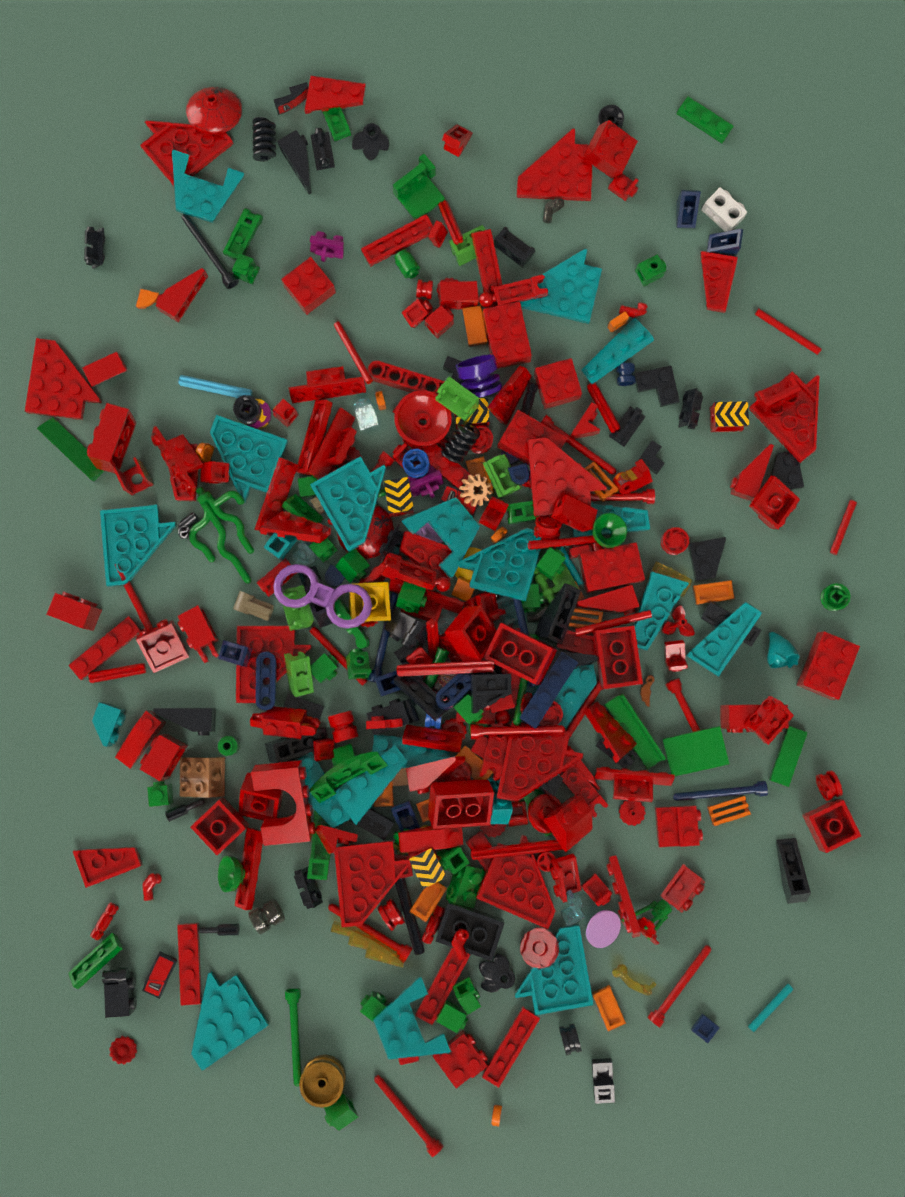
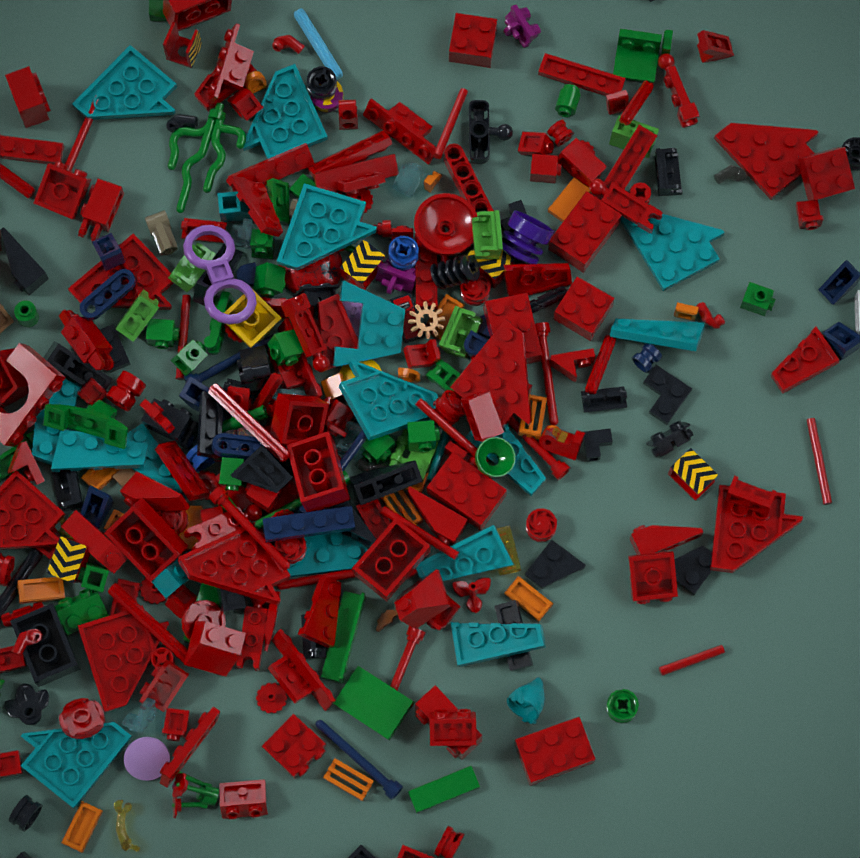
camera: 50 degrees right, 10 degrees down
(195, 405) = (287, 41): none -> red arm
(384, 347) = (481, 143): none -> black piece
(485, 197) = (687, 111): none -> red plate
(514, 272) = (641, 187): none -> red wheel
(660, 661) = (422, 600): none -> red slope

